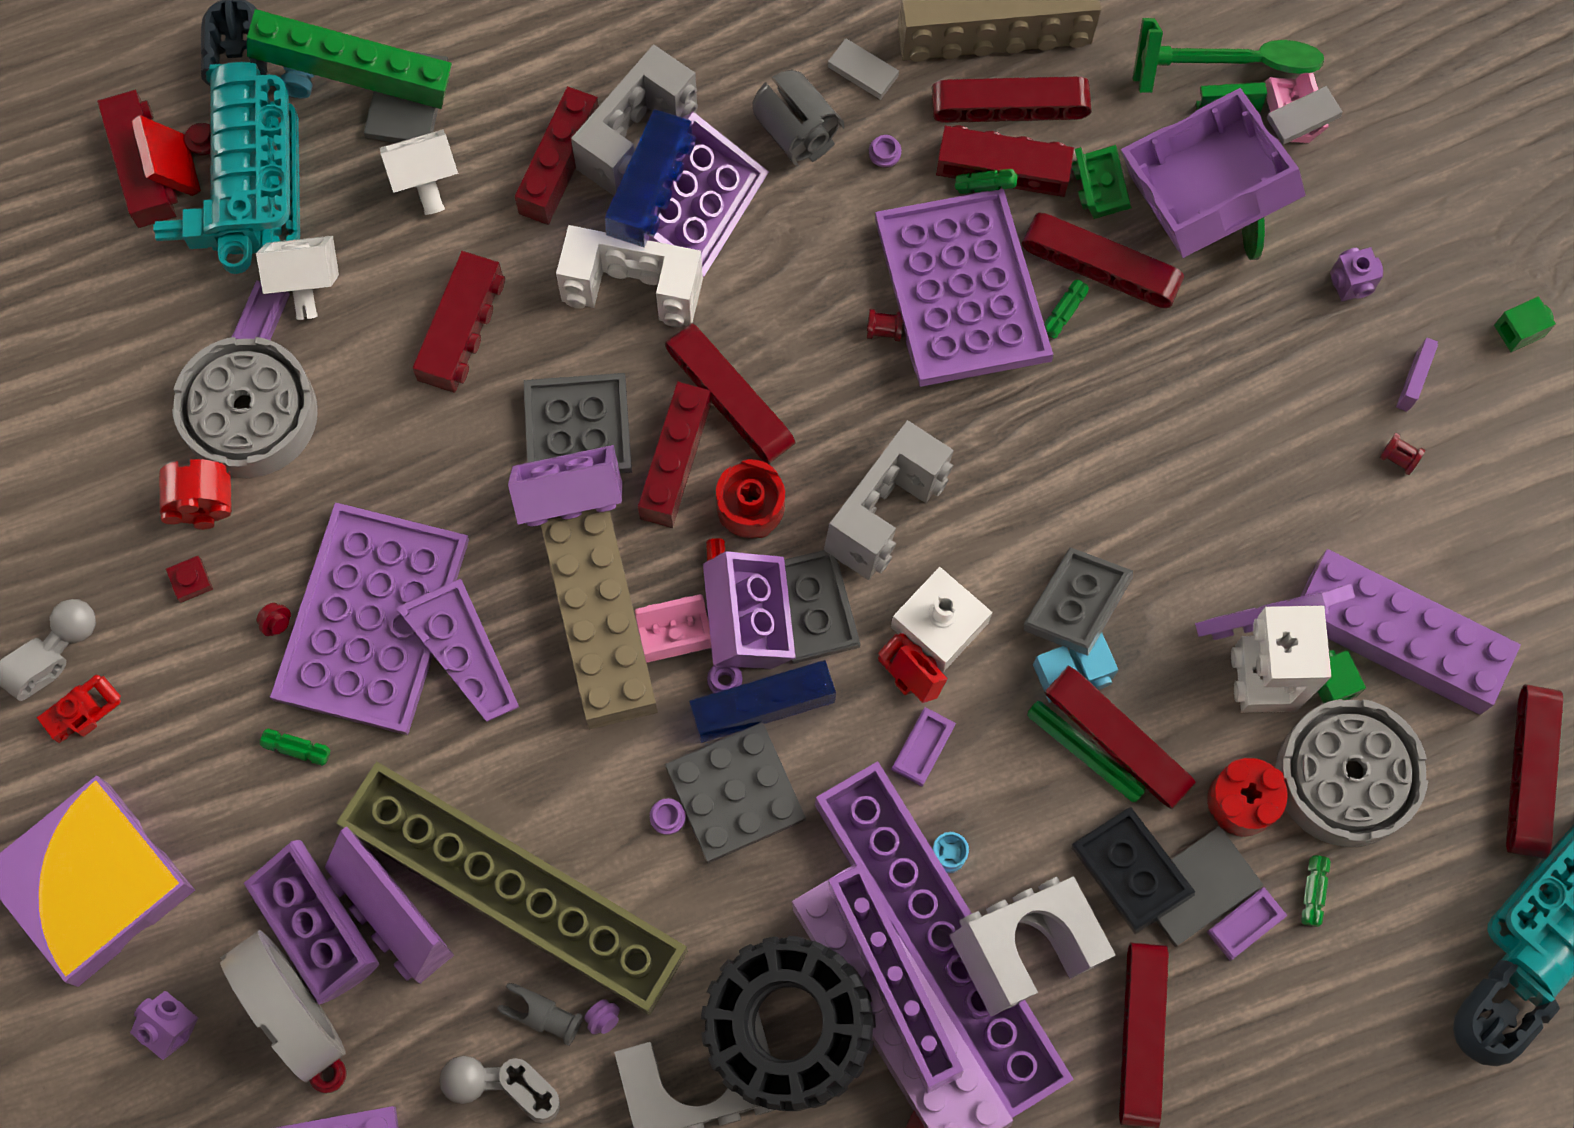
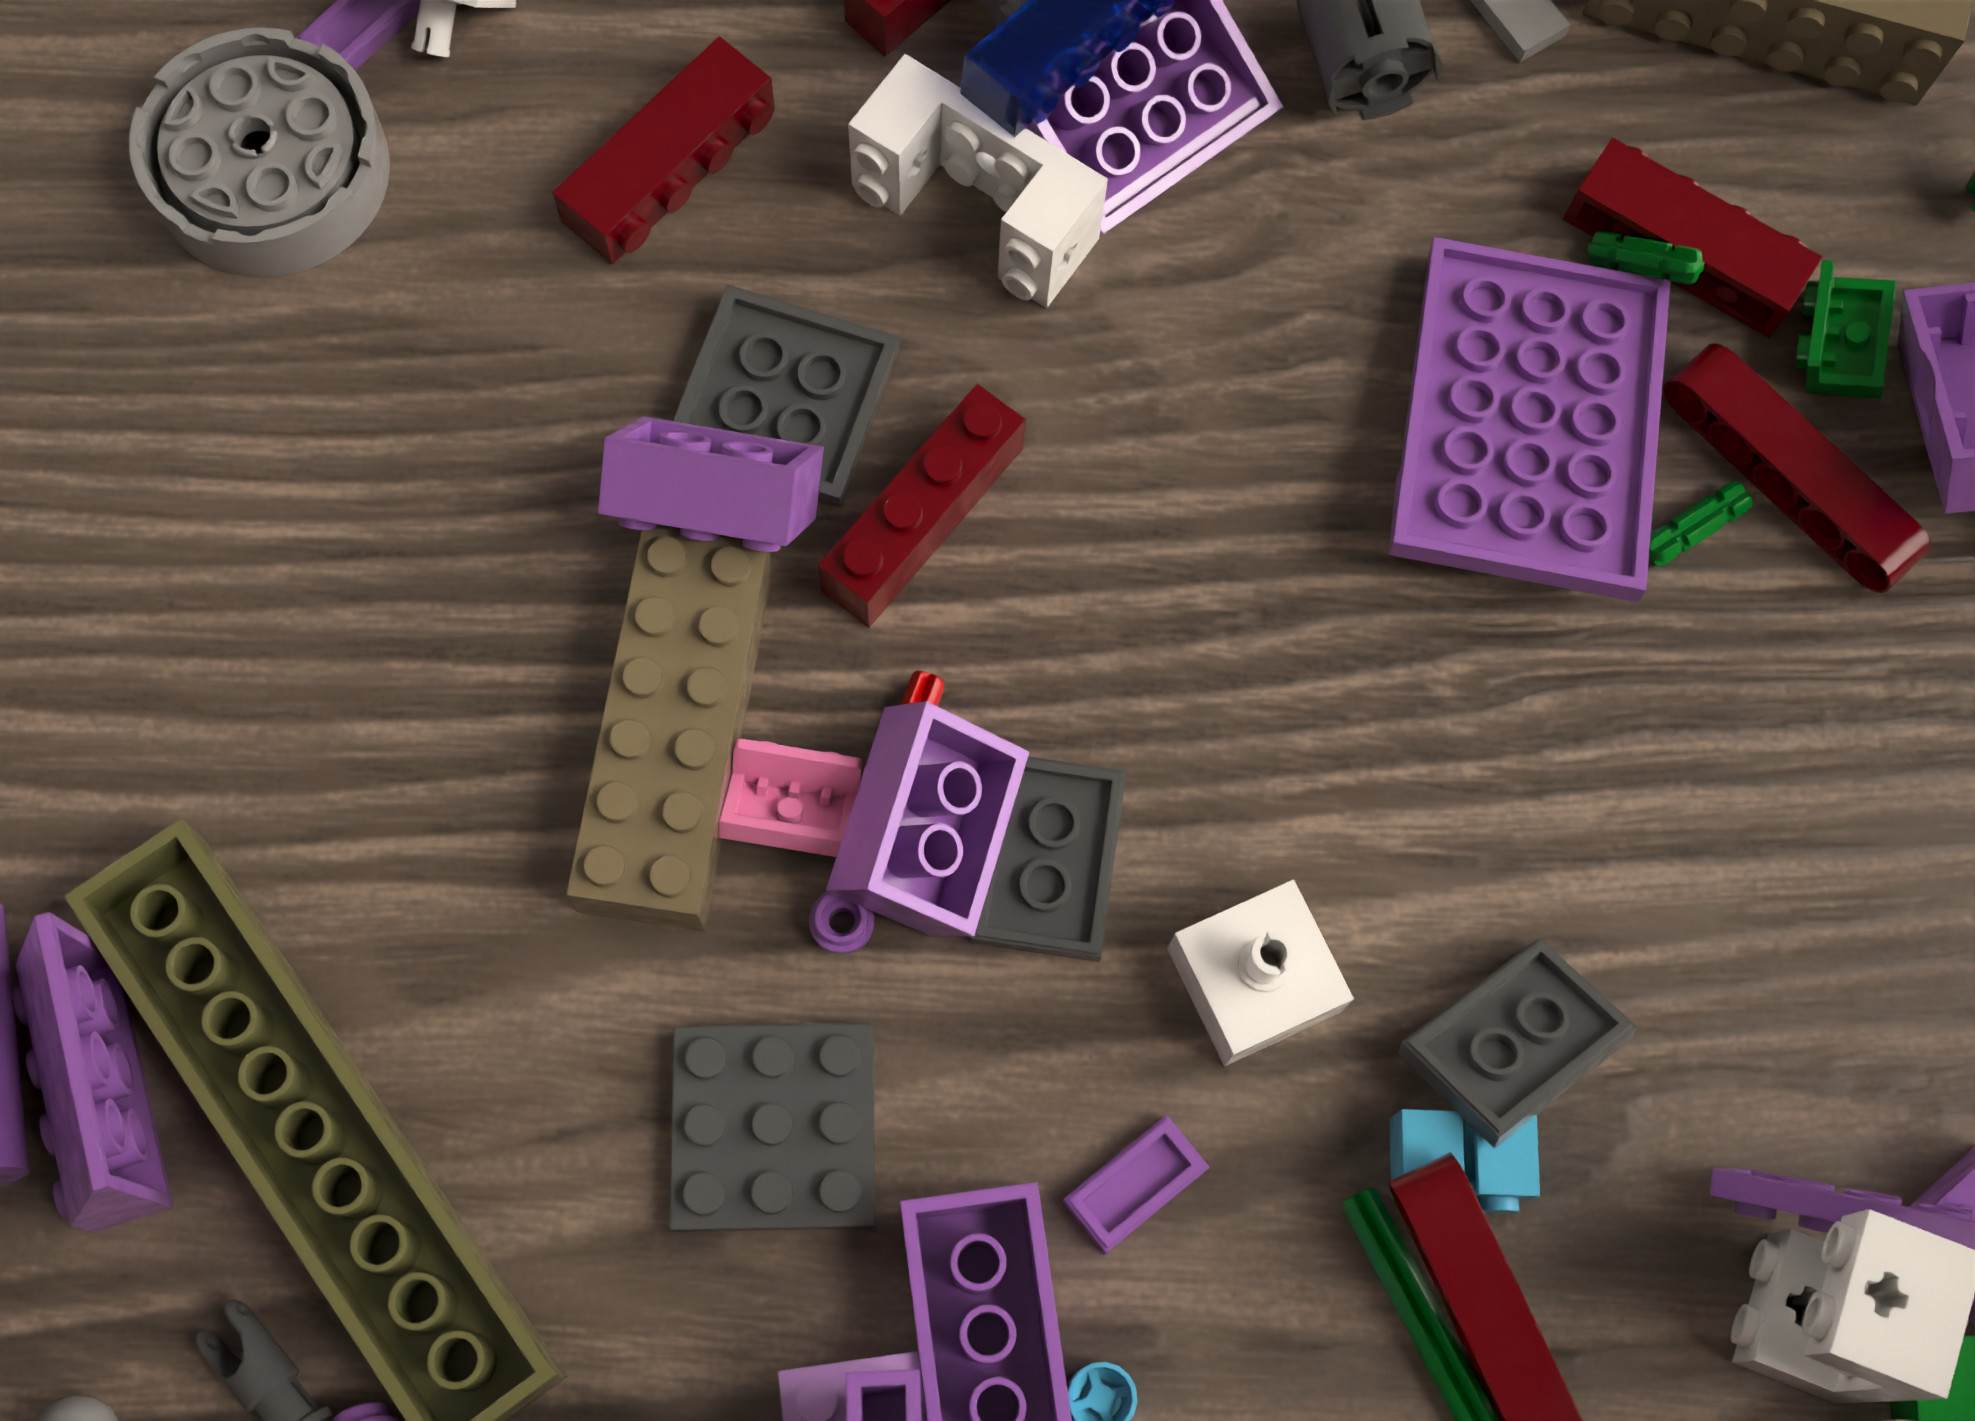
camera: 20 degrees right, 0 degrees up
(189, 579) = (45, 393): dark red plate -> none
(195, 493) = (109, 256): red brick -> none
(273, 619) = (142, 512): dark red plate -> none
(295, 747) = (78, 738): green axle -> none
(349, 641) = (299, 577): medium lavender plate -> none
(460, 644) = (421, 680): medium lavender wing -> none
(667, 816) = (638, 1120): medium lavender plate -> none
(730, 393) = (1061, 442): dark red beam -> none
(741, 482) = (1015, 596): red brick -> none
(763, 701) = (886, 987): clear blue brick -> none
(884, 325) = (1371, 429): dark red bush -> none
(885, 151) = (1492, 145): medium lavender plate -> none
(912, 462) = (1320, 676): light grey plate -> none
(912, 668) = (1172, 1039): red piece -> none
(1011, 99) = (1744, 141): dark red beam -> none

